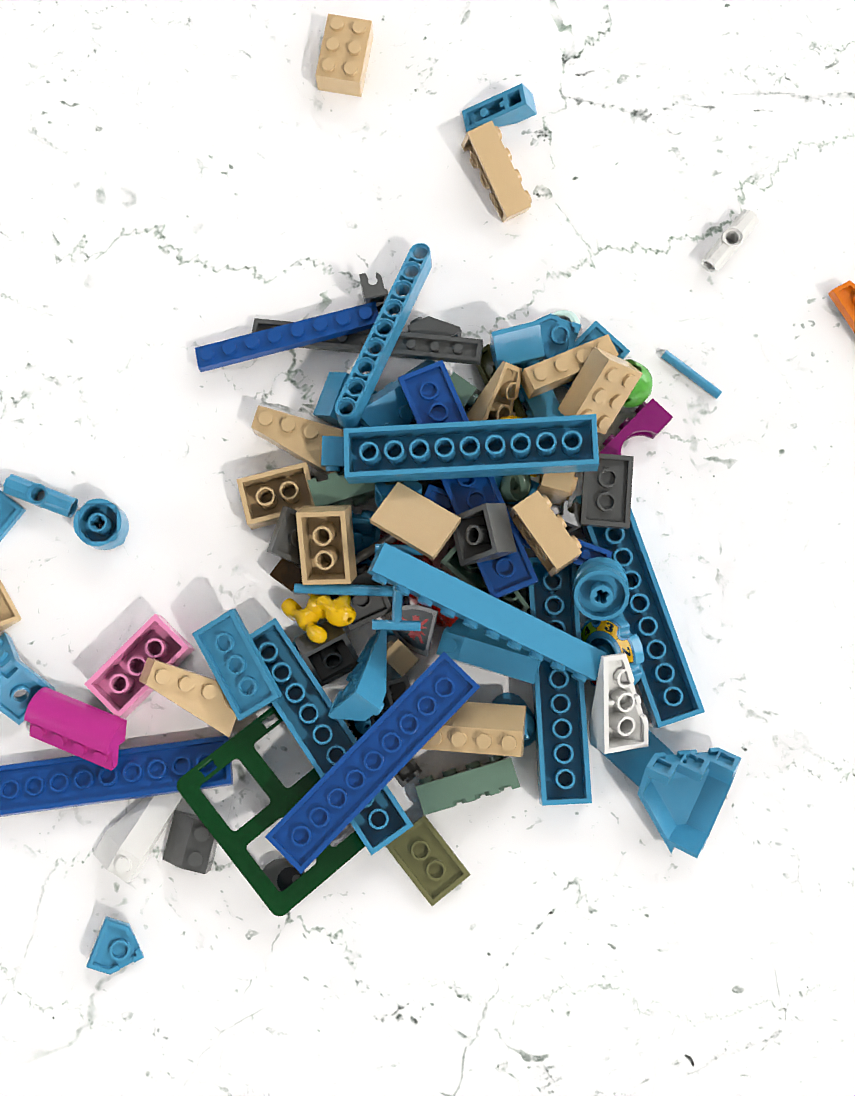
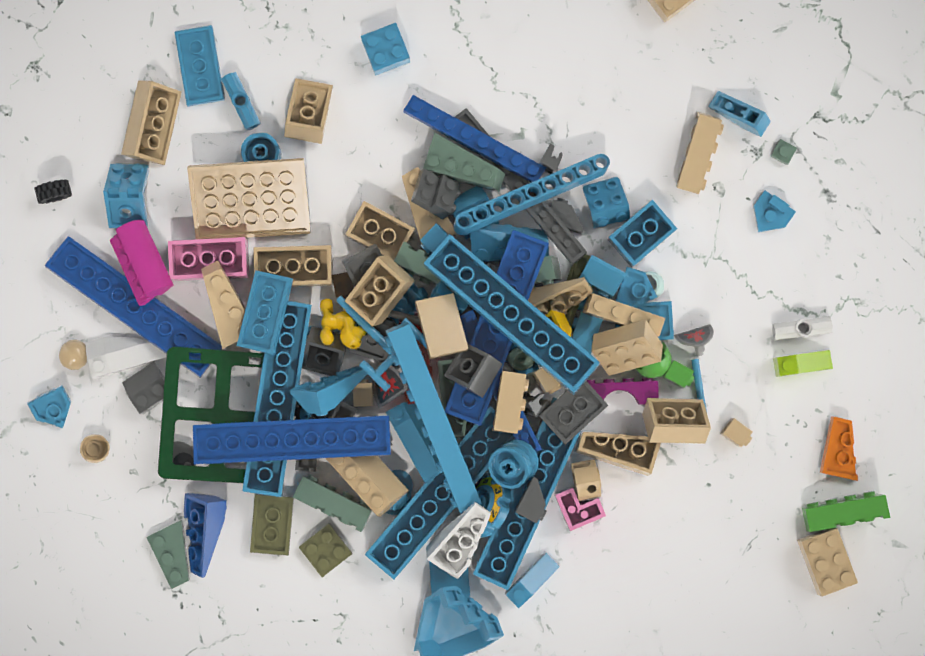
camera: 40 degrees right, 5 degrees up
(91, 877) = (73, 354): none -> tan hair
(112, 449) = (308, 111): none -> tan slope
(127, 574) = (249, 199): none -> tan plate
(132, 331) = (385, 49): none -> dark azure brick
(192, 948) = (94, 448): none -> tan hair
(238, 585) = (302, 263): none -> tan brick
(297, 368) = (460, 165): none -> sand green wedge
(297, 412) = (436, 193): none -> dark grey plate
(358, 980) = (171, 554): none -> sand green wing
(362, 916) = (205, 523): none -> blue wedge
(458, 287) = (606, 202): none -> dark azure bracket
(500, 836) = (325, 550): none -> olive plate
(514, 284) = (642, 233): none -> dark azure brick
(567, 111) = (783, 152): none -> sand green plate
(607, 169) = (772, 212): none -> dark azure plate
(650, 329) = (696, 338): none -> shield
(651, 606) = (532, 502): none -> dark grey slope
(666, 377) = (679, 374): none -> bright green brick
(675, 545) = (586, 479): none -> tan piece
(681, 489) = (620, 450): none -> tan wedge
(694, 583) = (578, 514): none -> bright pink brick
(704, 416) = (676, 420): none -> tan brick
(714, 683) = (532, 580): none -> slope
(758, 272) = (802, 363): none -> lime slope
(763, 381) = (737, 433): none -> tan brick

